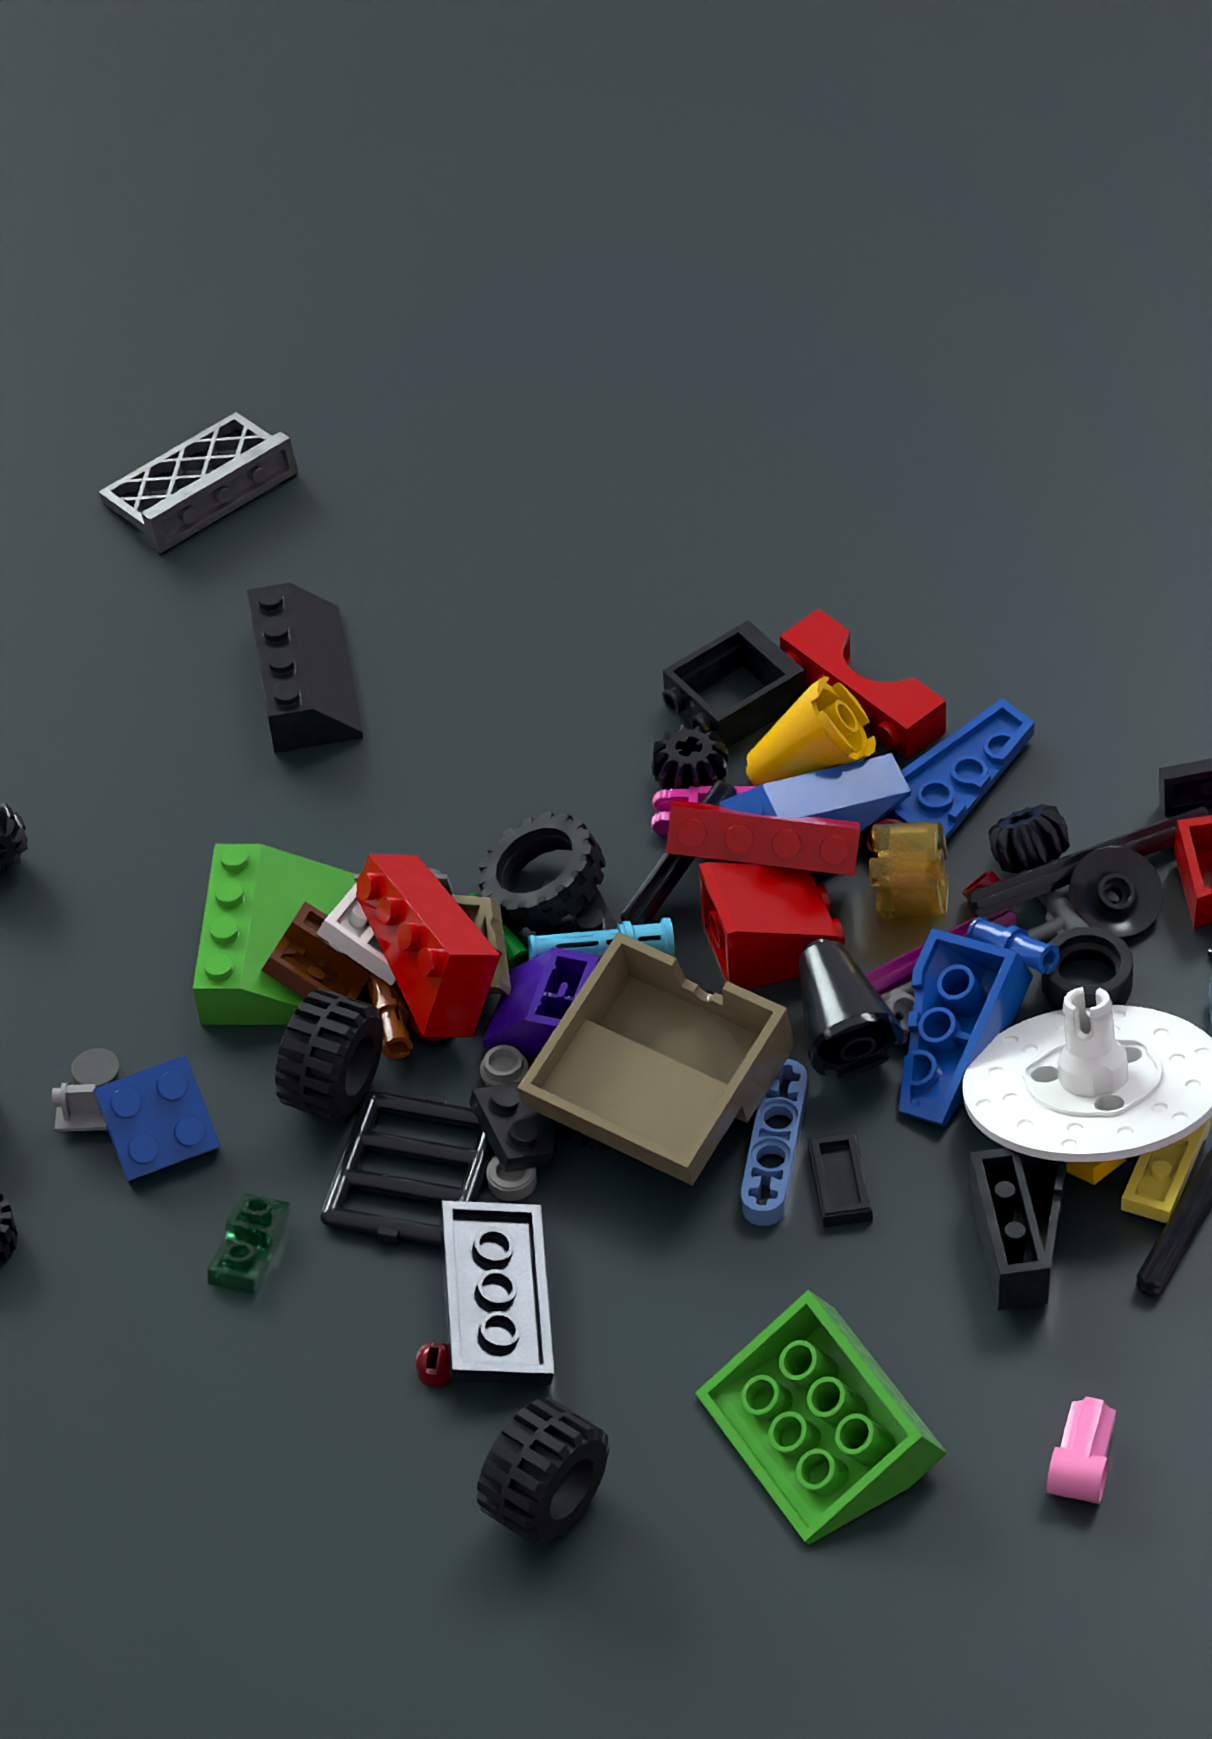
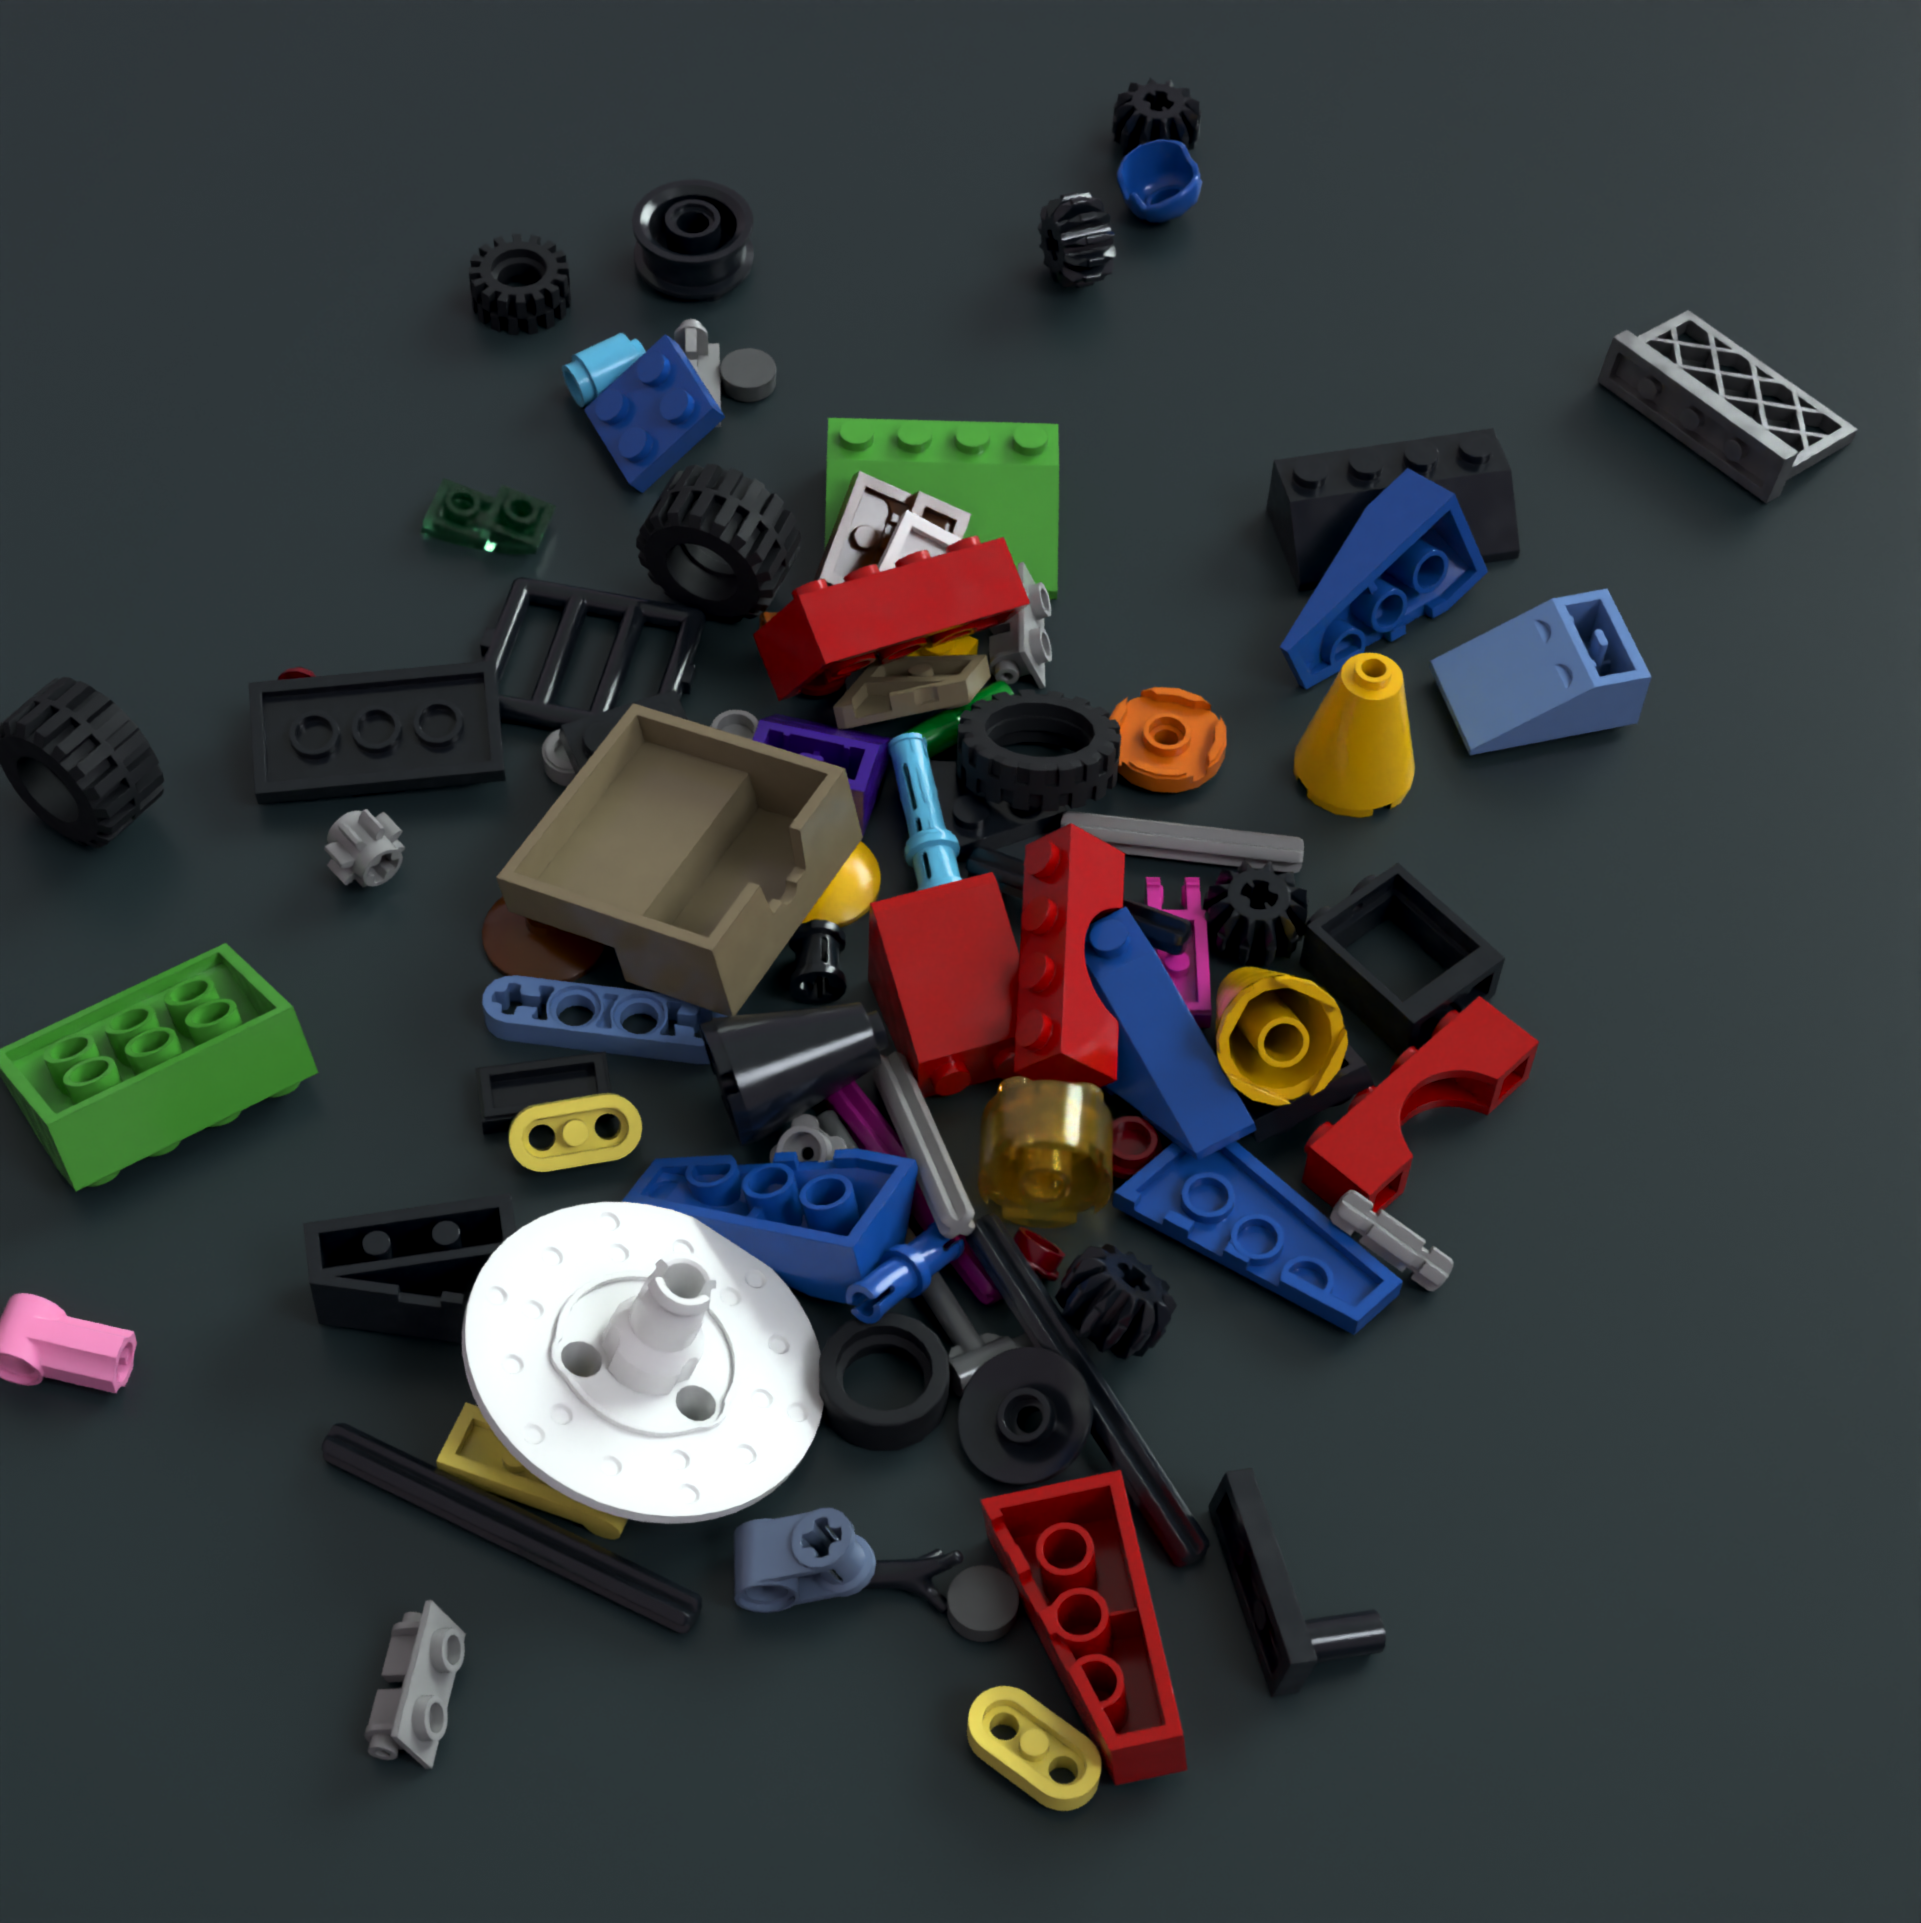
camera: 80 degrees right, 5 degrees up
(88, 1163) = (599, 367): none -> medium azure brick
(366, 655) = (1398, 563): none -> blue wedge
(479, 590) = (1545, 675): none -> medium blue slope
(513, 800) = (1169, 740): none -> orange plate
(539, 691) = (1359, 741): none -> yellow cone
(616, 1292) = (364, 848): none -> light grey gear
(617, 800) = (1192, 842): none -> light grey axle
(683, 1206) = (536, 949): none -> reddish brown dish
(885, 1149) = (574, 1132): none -> light yellow plate
(914, 933) = (924, 1143): none -> light grey axle
(968, 703) = (1391, 1240): none -> light grey axle

